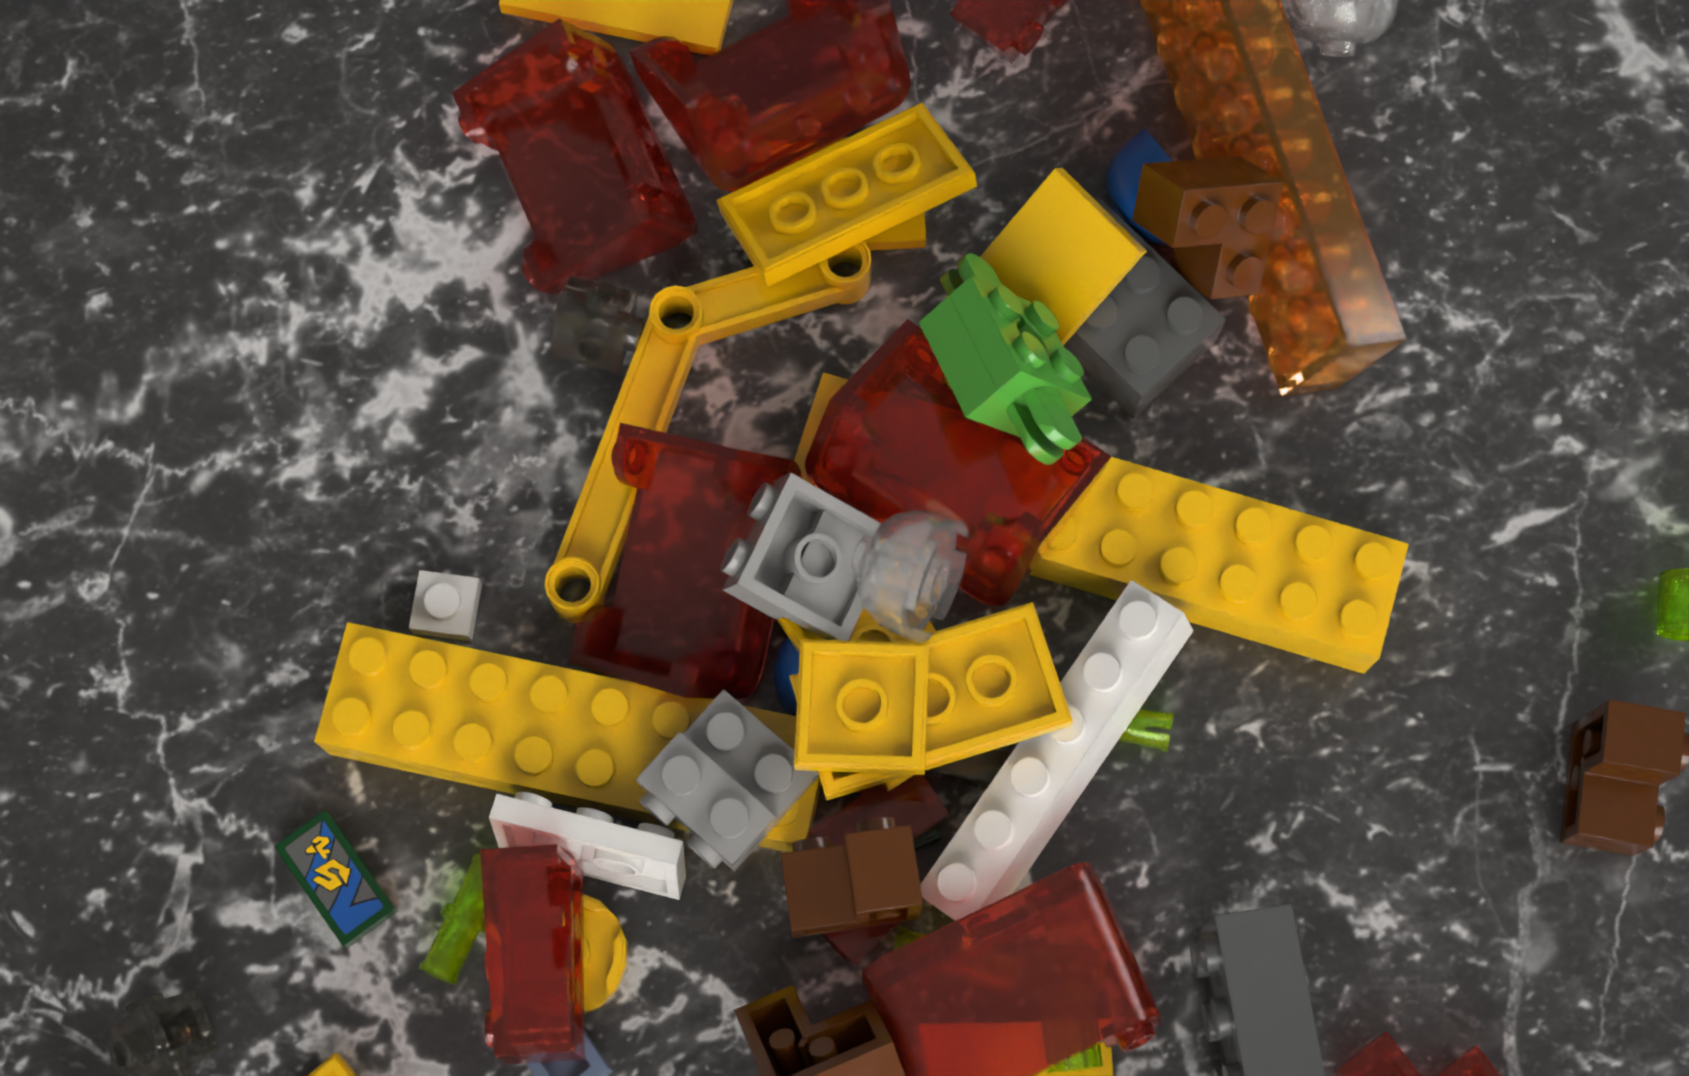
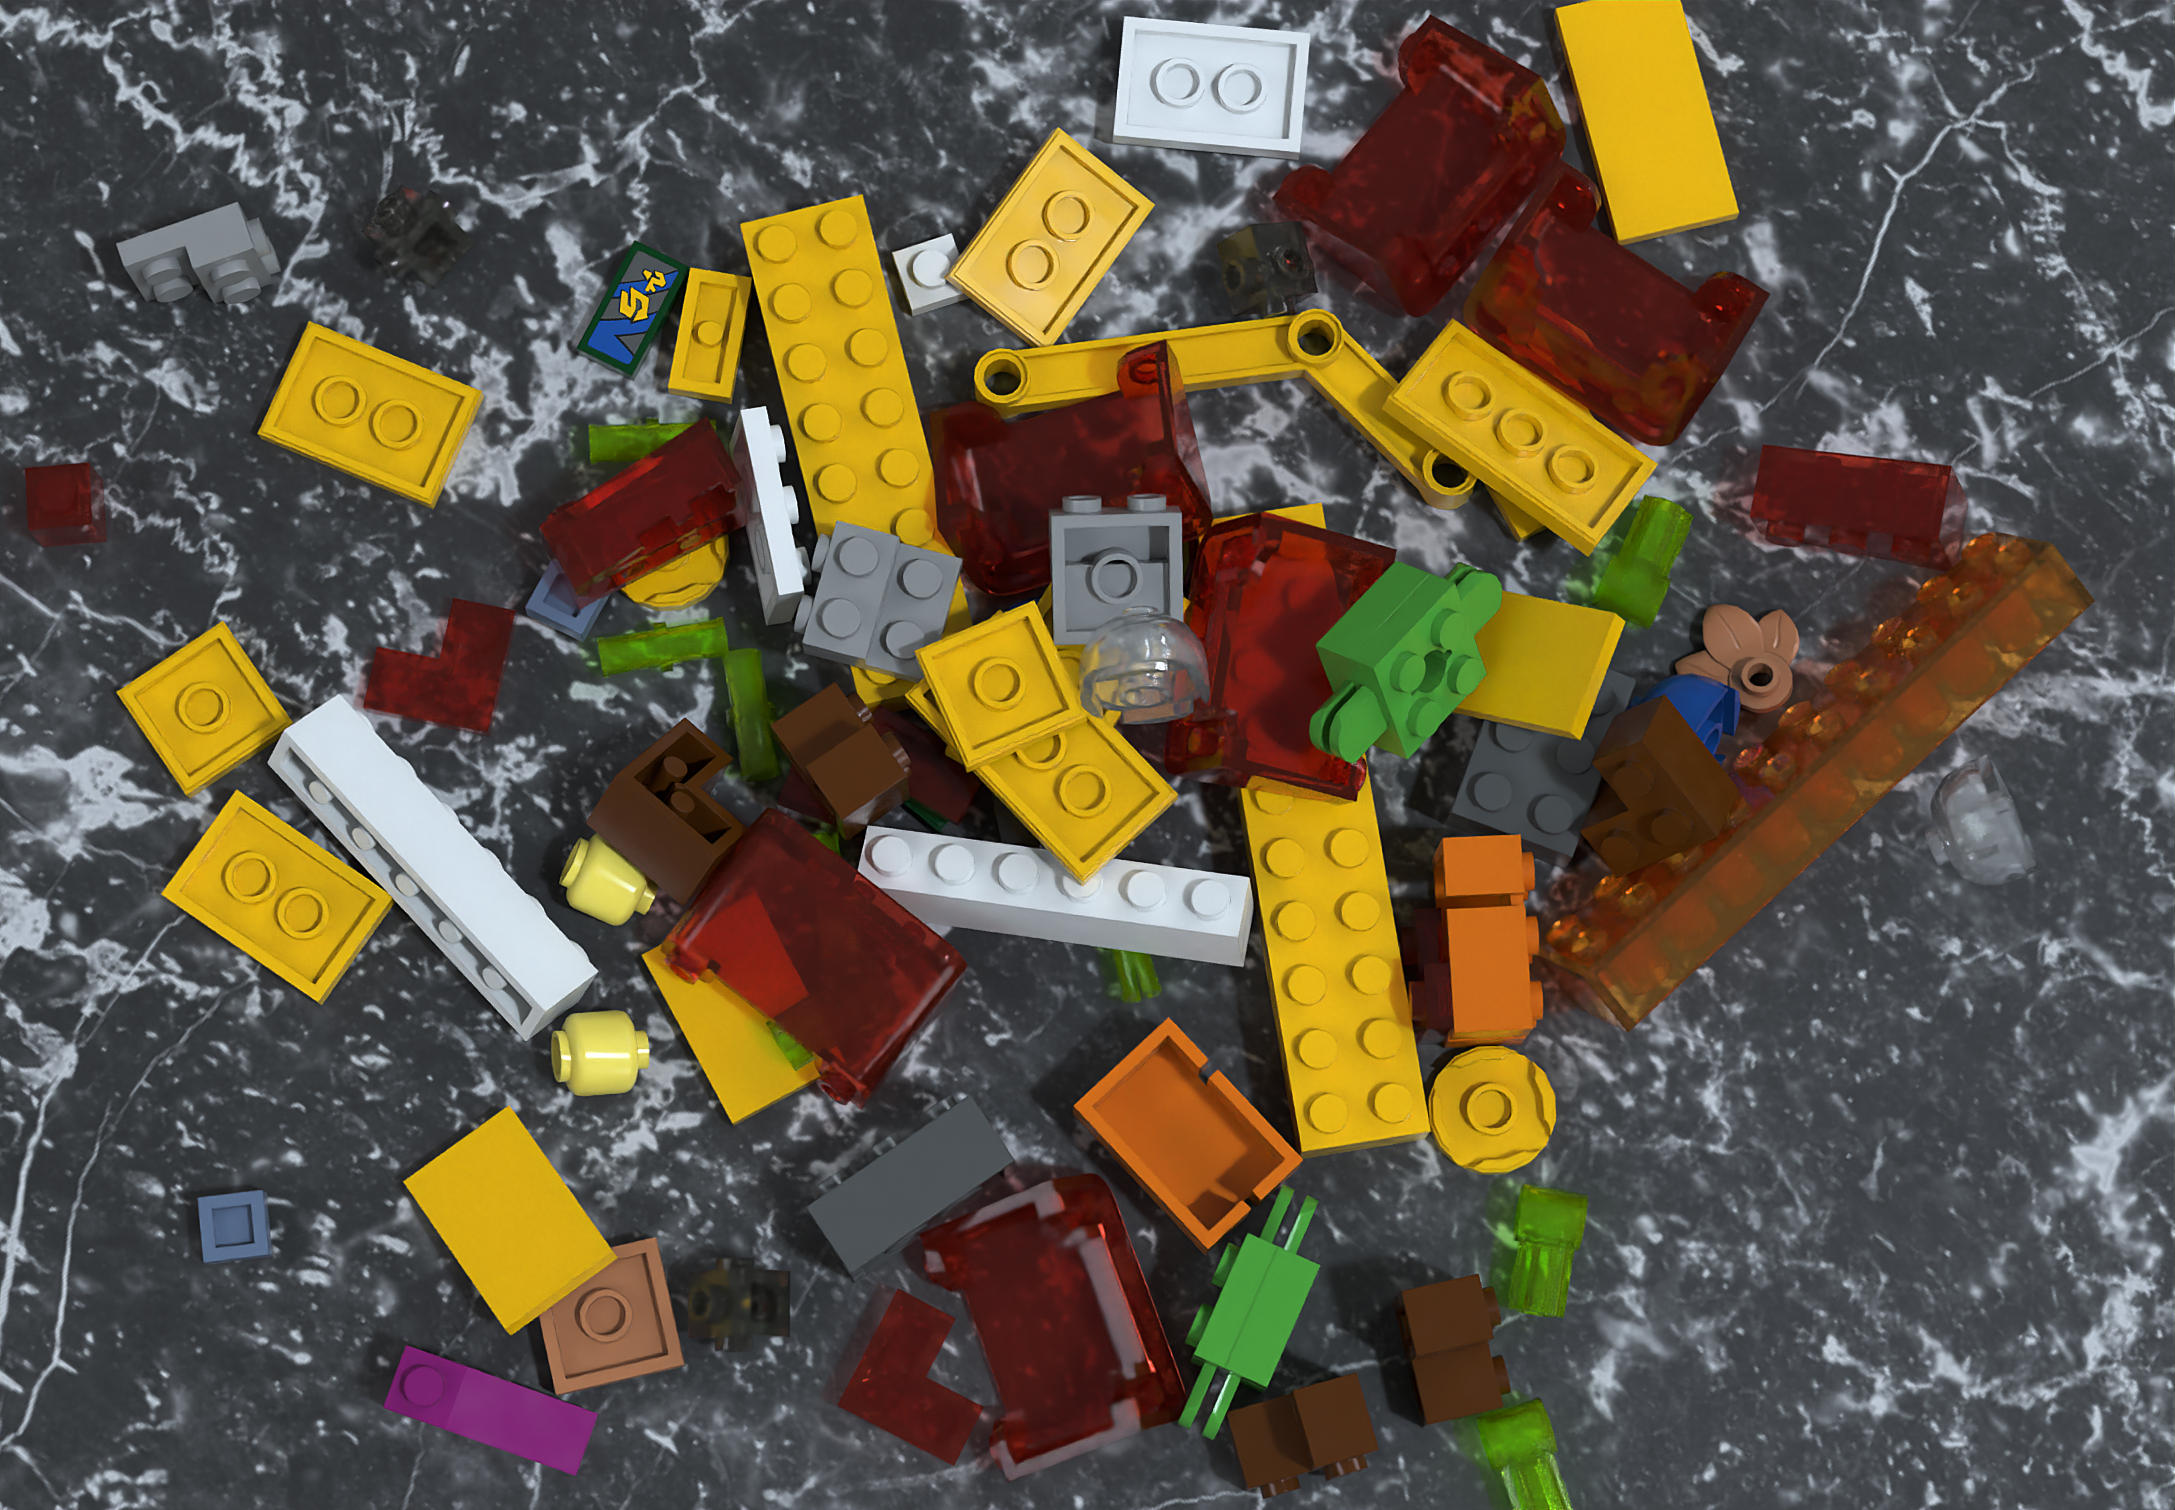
camera: 60 degrees right, 5 degrees up
(396, 820) = (710, 335): none -> yellow plate
(412, 298) = (1211, 88): none -> white plate
(471, 491) = (1049, 240): none -> yellow tile
(654, 1000) = (662, 647): none -> clear neon green pin
(756, 951) = (751, 715): none -> clear neon green pin
(1004, 167) = (1639, 573): none -> clear neon green piece
(1103, 120) = (1742, 648): none -> nougat plate
(1264, 425) = (1488, 938): none -> orange piece
(1290, 484) = (1431, 991): none -> clear red plate
(1317, 750) = (1186, 1141): none -> orange piece
(1396, 492) = (1491, 1110): none -> yellow tile
(1439, 943) = (1059, 1322): none -> clear red windscreen
(1500, 770) = (1253, 1313): none -> bright green brick
(1522, 497) = (1548, 1232): none -> clear neon green piece
(1594, 620) = (1448, 1350): none -> reddish brown brick

